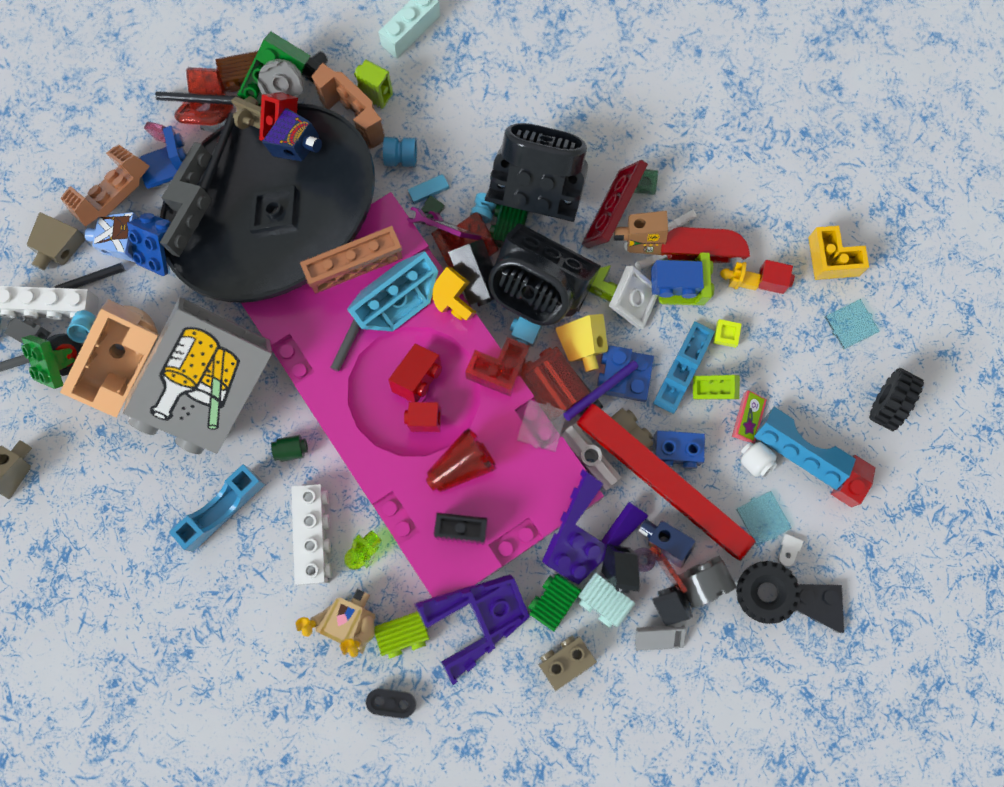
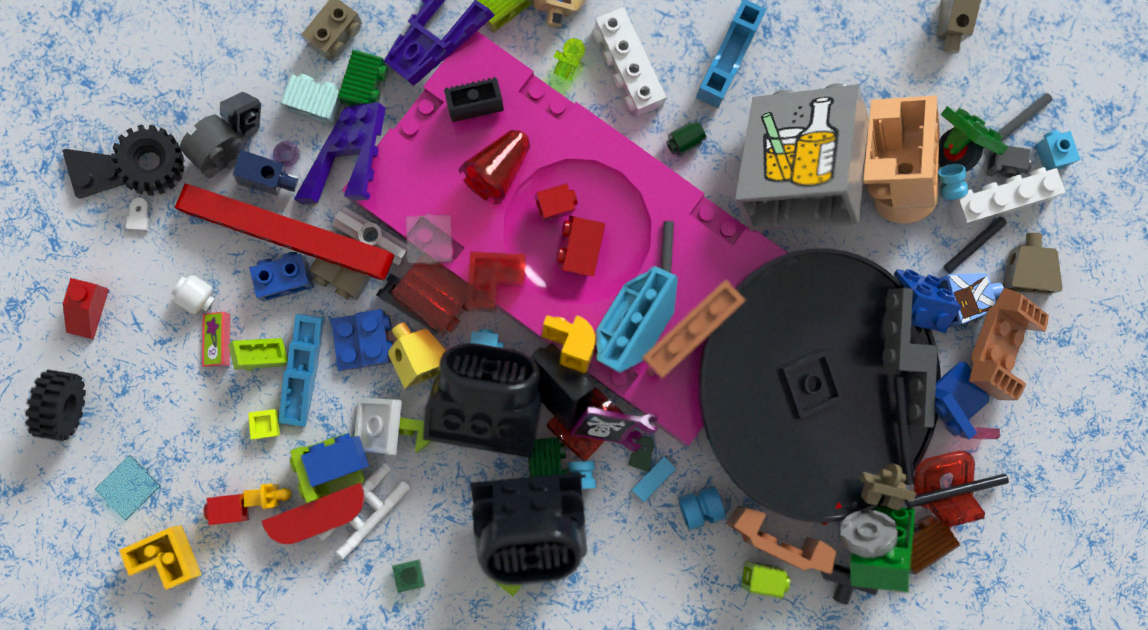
camera: 155 degrees right, 5 degrees up
(272, 107) = (854, 489): red slope -> none
(292, 137) = (823, 465): dark blue torso -> none
(600, 390) = (379, 300): dark purple bar -> none
(614, 204) = (433, 528): dark red tile -> none
(621, 568) = (303, 129): black slope -> none
(644, 232) = (378, 505): medium nougat torso -> none
(658, 637) = (248, 82): light grey piece -> none
(668, 569) = (254, 141): clear red piece -> none
(764, 518) = (173, 239): clear light blue piece -> none
(780, 433) = (177, 328): dark azure arch -> none

